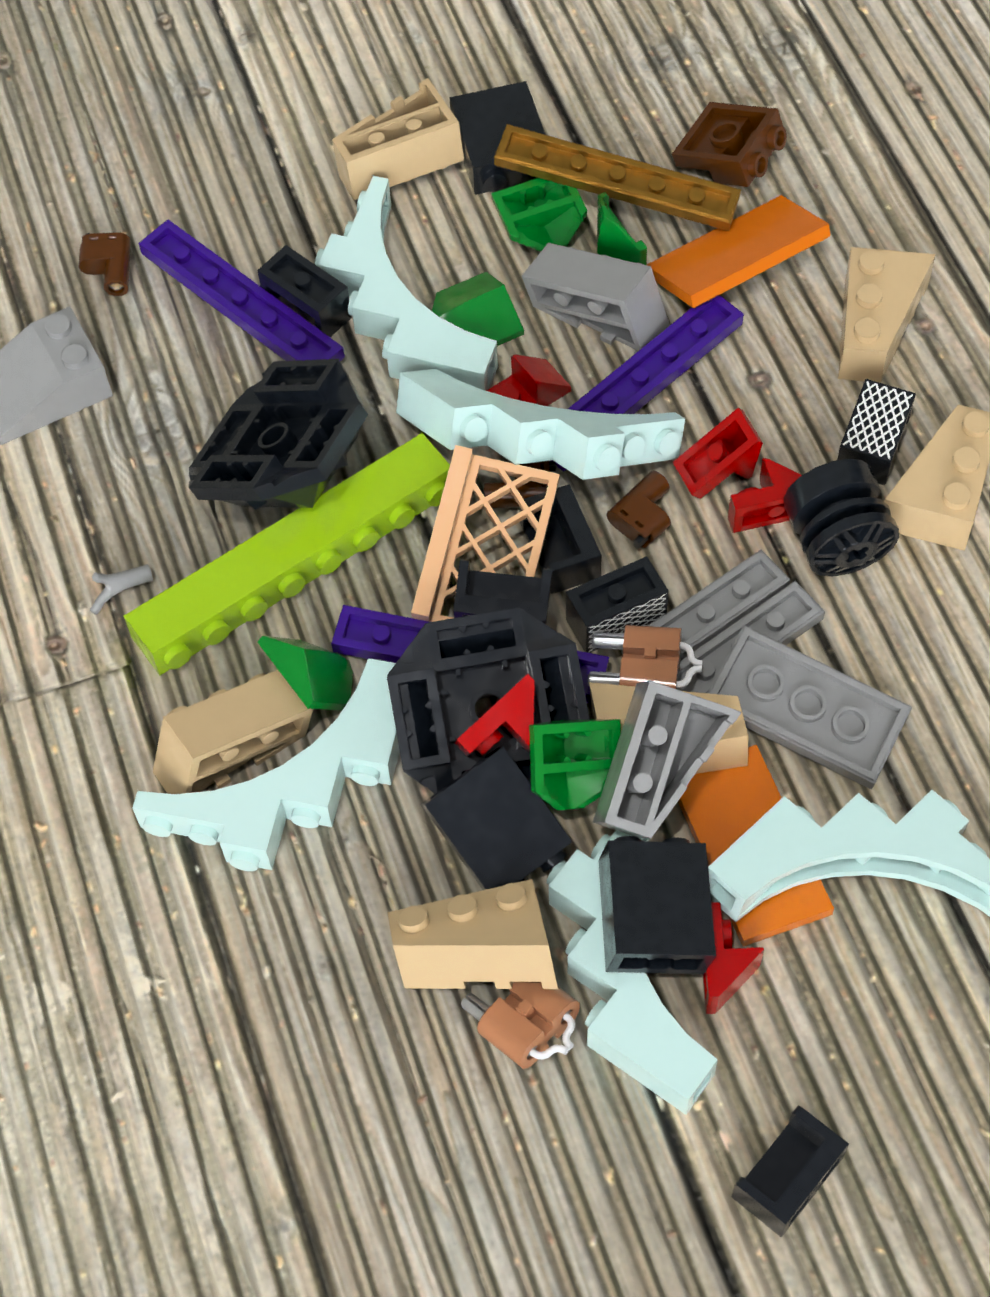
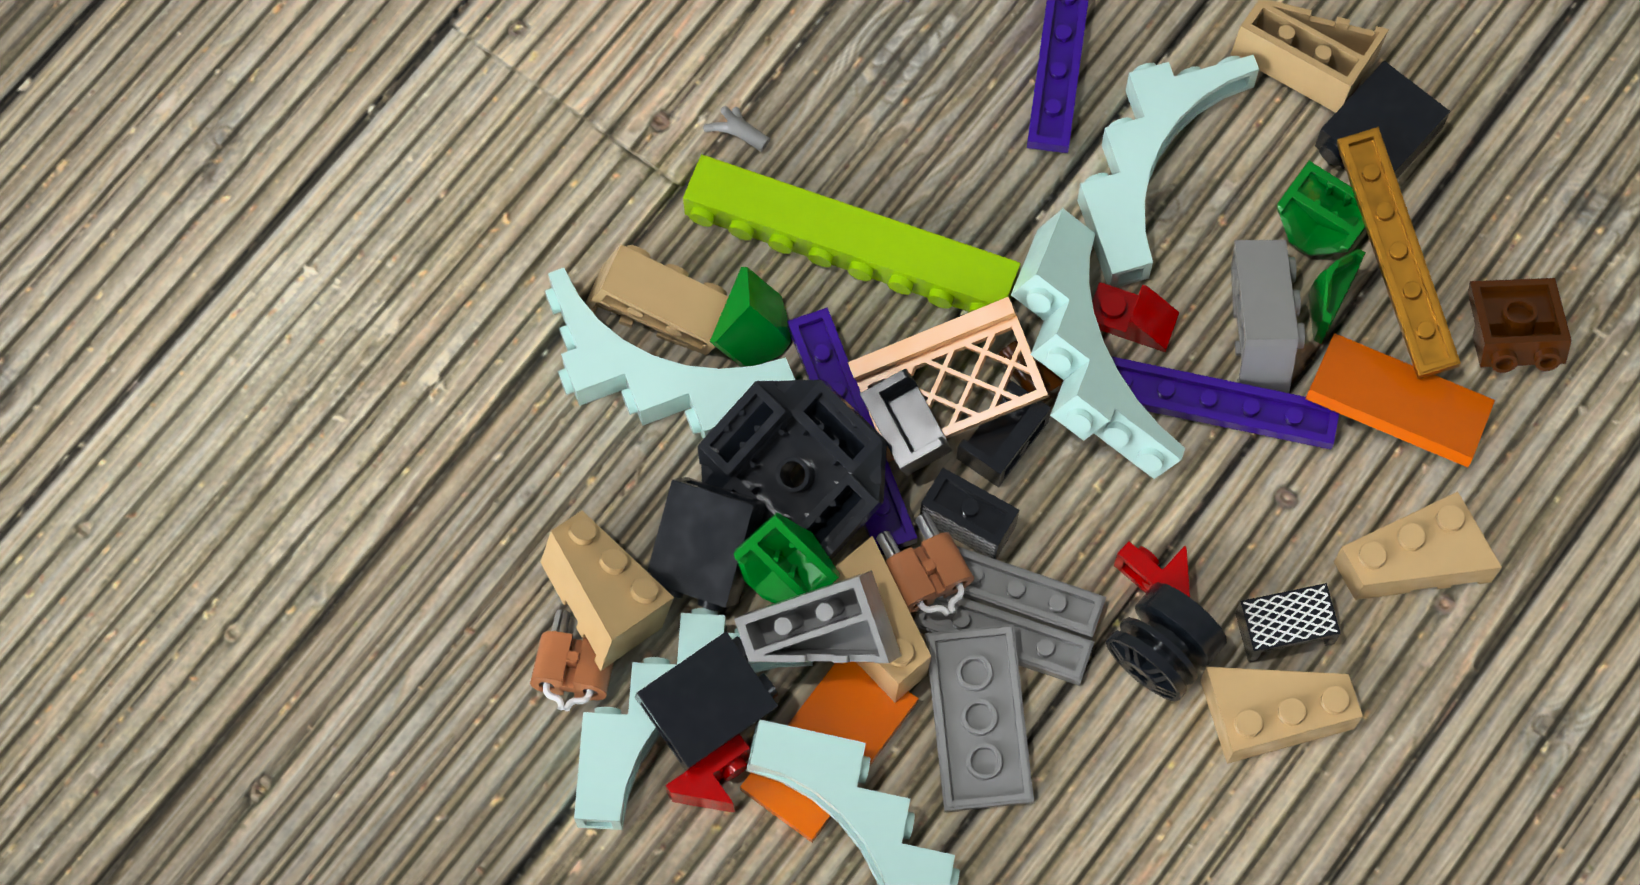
camera: 55 degrees right, 10 degrees up
(281, 438) = (927, 159): black piece -> none
(307, 288) = (1100, 80): black panel -> none
(480, 307) = (1185, 226): green slope -> none
(512, 711) = (791, 494): red slope -> none
(638, 514) = (1072, 477): reddish brown piece -> none
(719, 453) = (1167, 508): red slope -> none

